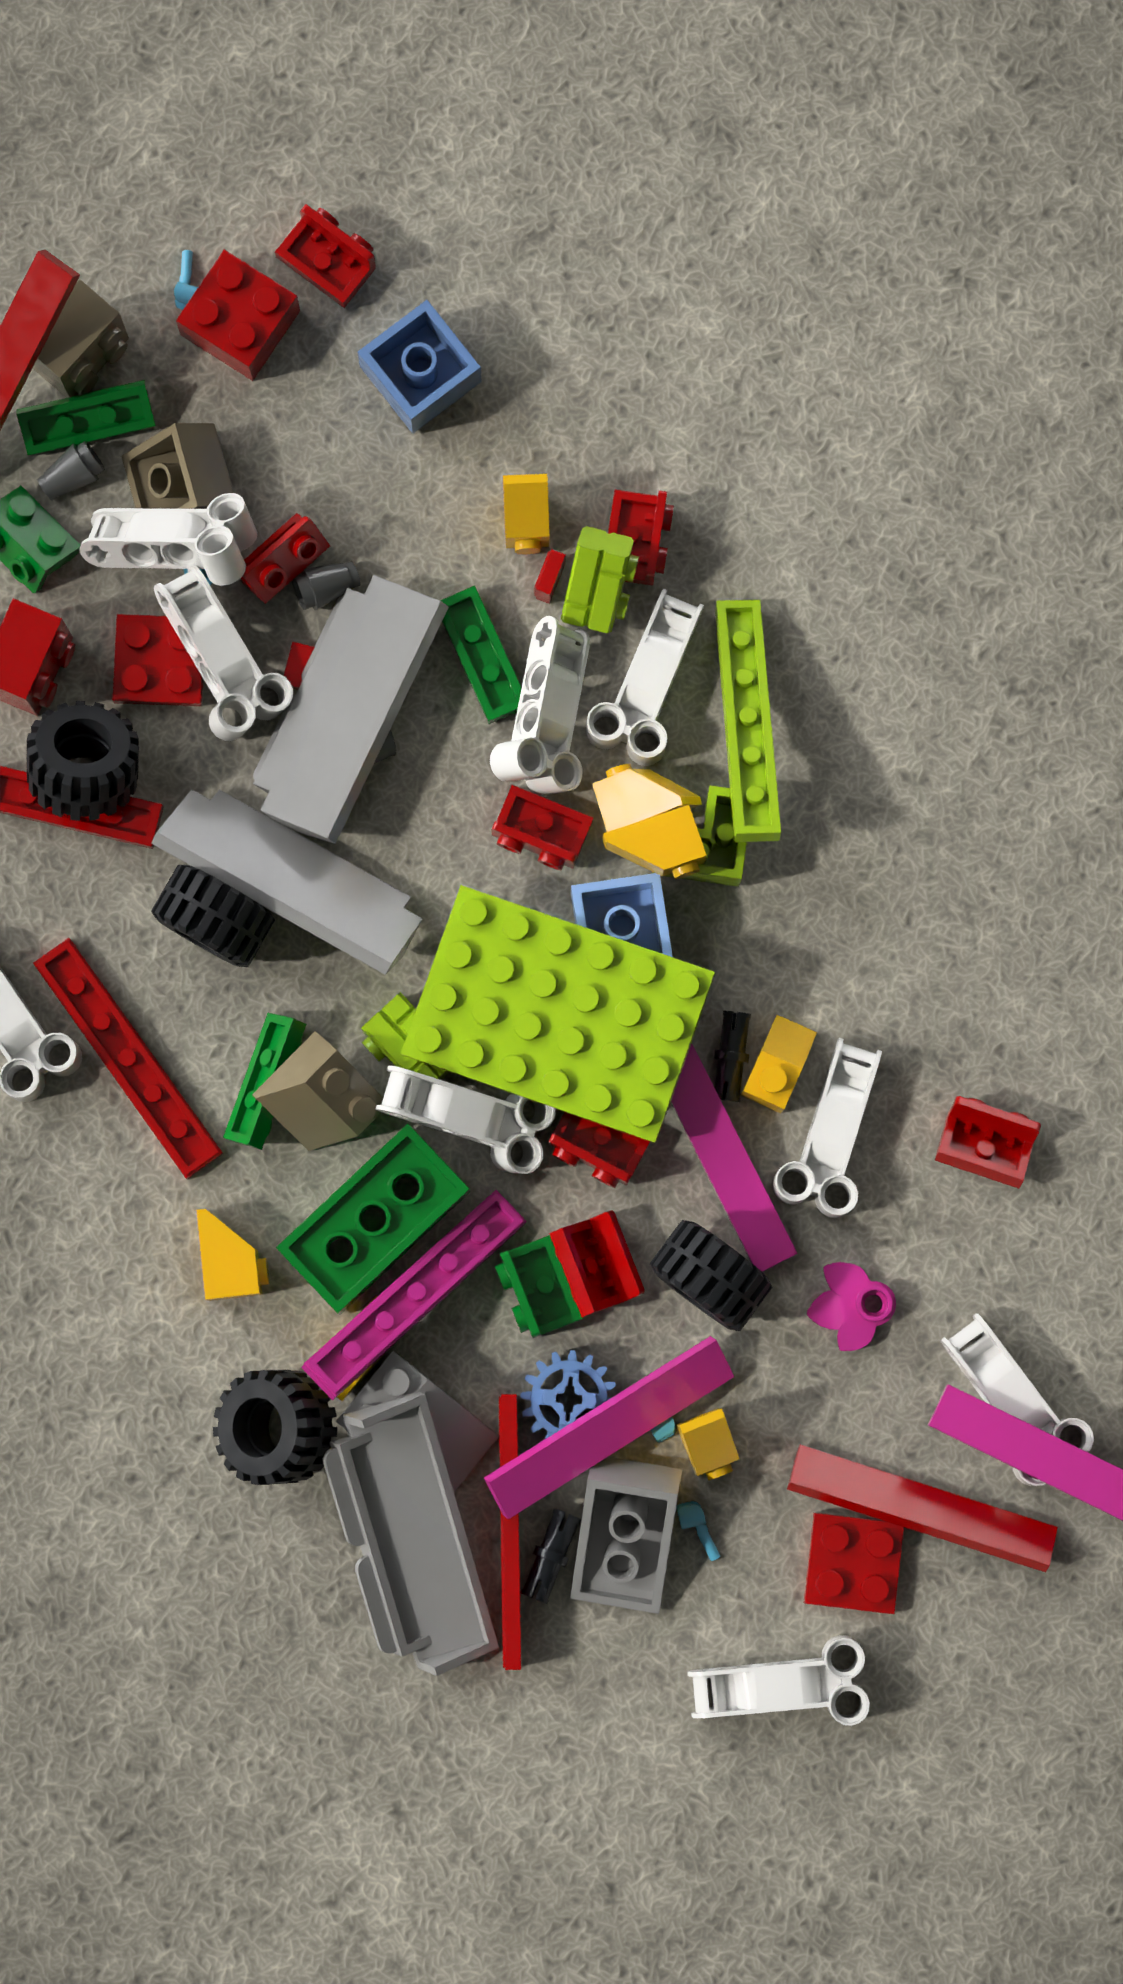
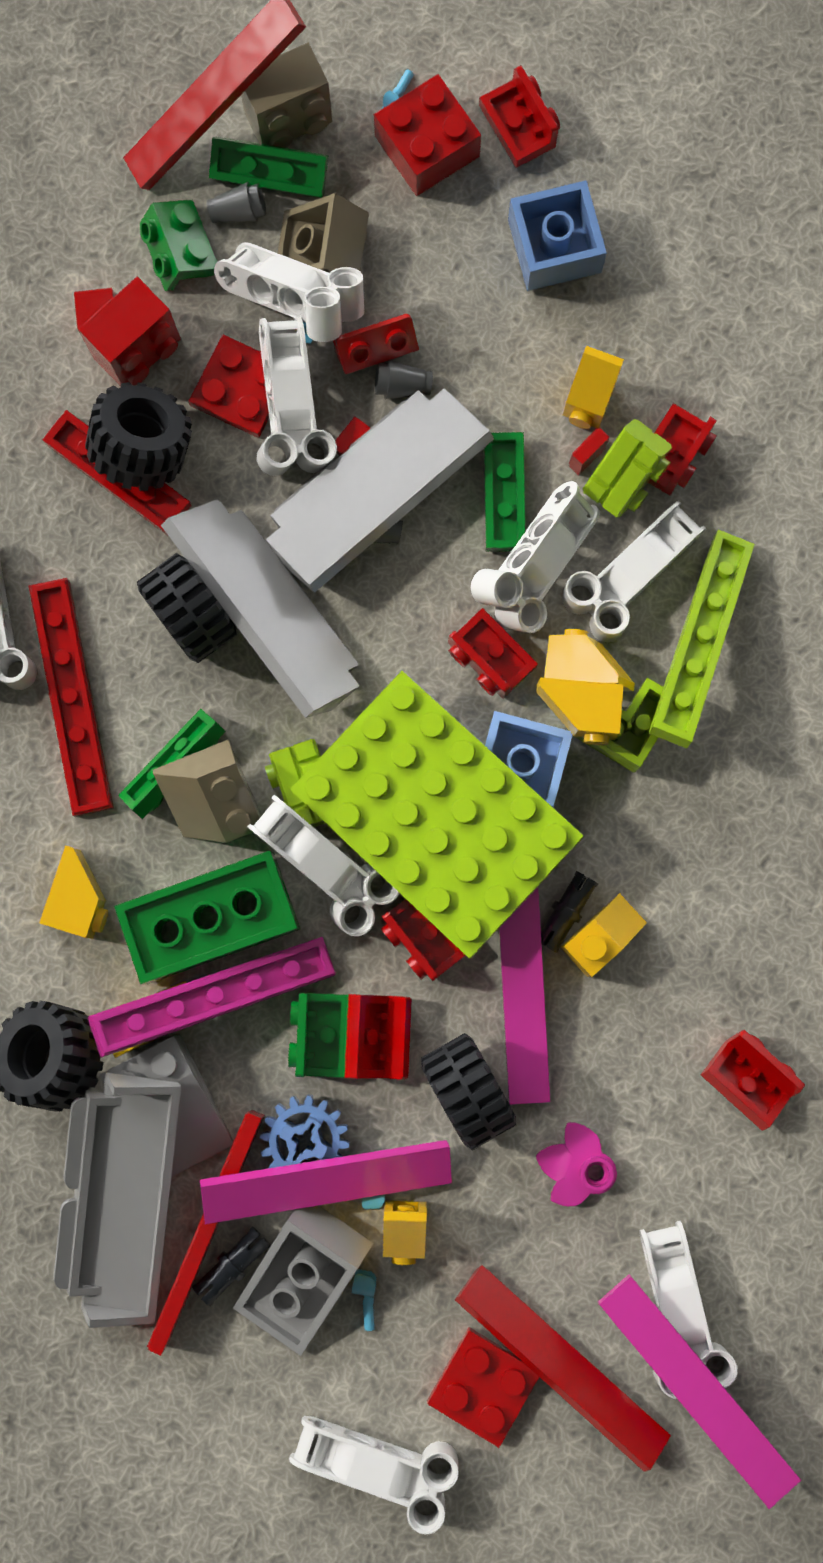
camera: 30 degrees right, 0 degrees up
(833, 1130) = (626, 1011): white piece -> none

